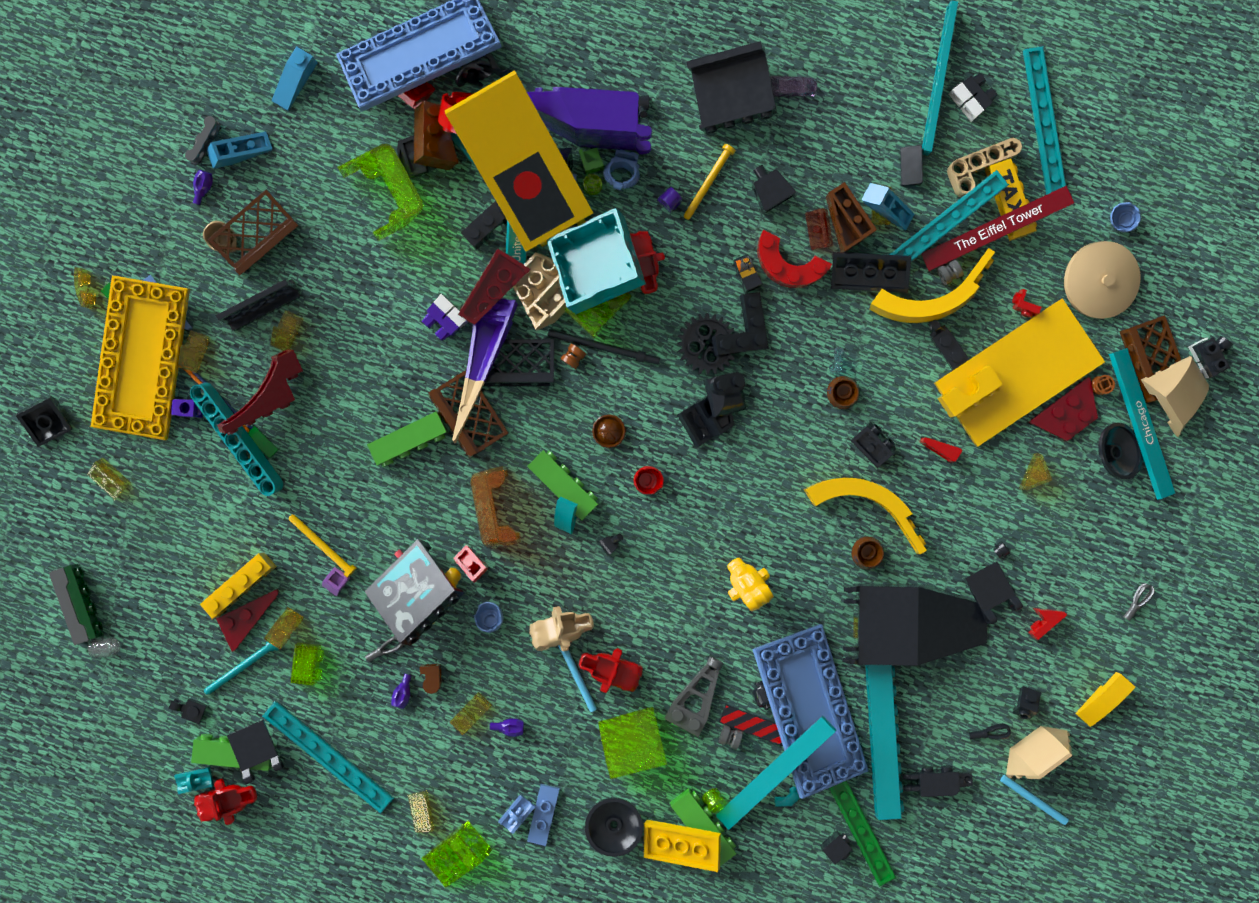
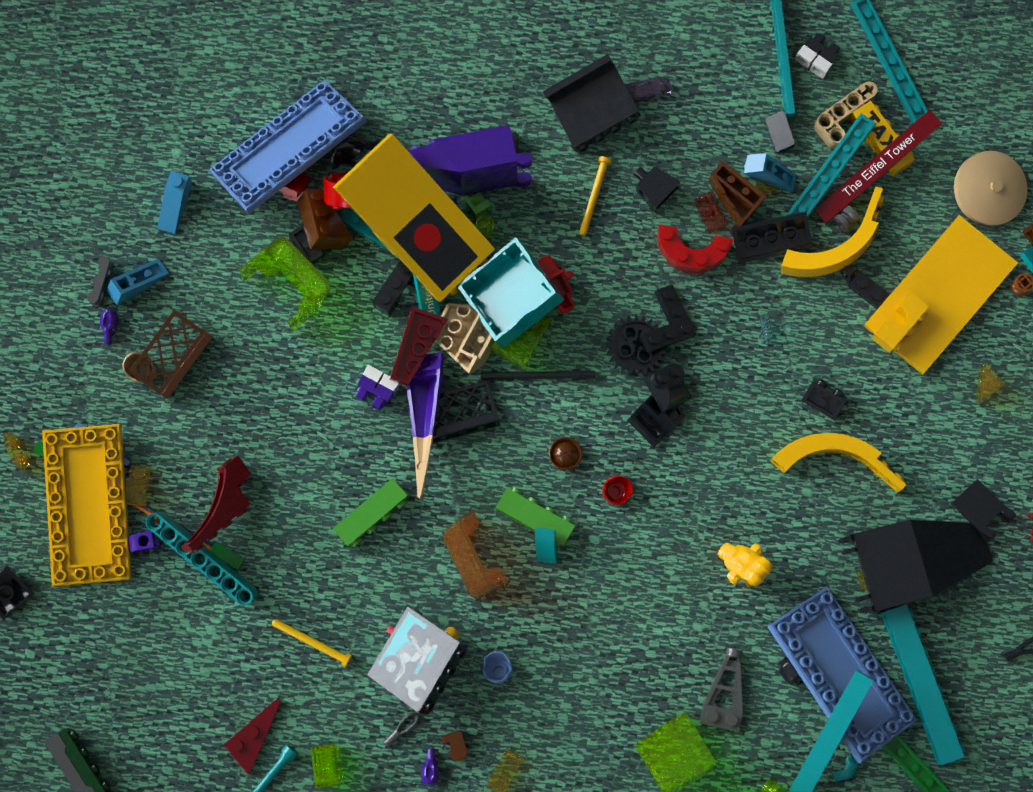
camera: 15 degrees left, 10 degrees down
(108, 478) = (81, 633): clear yellow slope -> none
(238, 585) = (238, 704): yellow brick -> none
(260, 304) = (193, 421): black fence -> none
(283, 628) = (295, 734): clear yellow slope -> none
(286, 332) = (225, 441): clear yellow slope -> none
(335, 581) = (334, 675): medium lavender slope -> none
(450, 417) = (410, 485): reddish brown fence -> none
(470, 563) = (465, 618): slope -> none
(509, 727) = (547, 774): dark purple piece -> none
(559, 629) = (571, 660): tan piece -> none
(570, 359) = (511, 391): dark orange wheel -> none
(579, 681) = (600, 704): medium azure bar -> none
(610, 543) = (597, 562): black piece -> none
(612, 670) = (634, 687): red piece -> none
(622, 160) = (506, 197): medium blue piece -> none
(670, 199) = (563, 220): dark purple leg -> none
(726, 736) = (771, 723): dark grey wheel -> none
(747, 273) = (655, 270): black leg -> none
(750, 724) = (788, 705): tile -> none
(843, 392) = (780, 357): reddish brown hat -> none
(867, 552) = (845, 500): reddish brown hat -> none
(938, 782) = (989, 711): black hinge -> none
(946, 451) = (891, 385): red slope -> none
(1001, 550) = (978, 466): black plate -> none
(1027, 309) = (930, 233): red bracket -> none
(1069, 412) = (1000, 319): dark red wing -> none
(1125, 217) = (993, 126): medium blue hair -> none

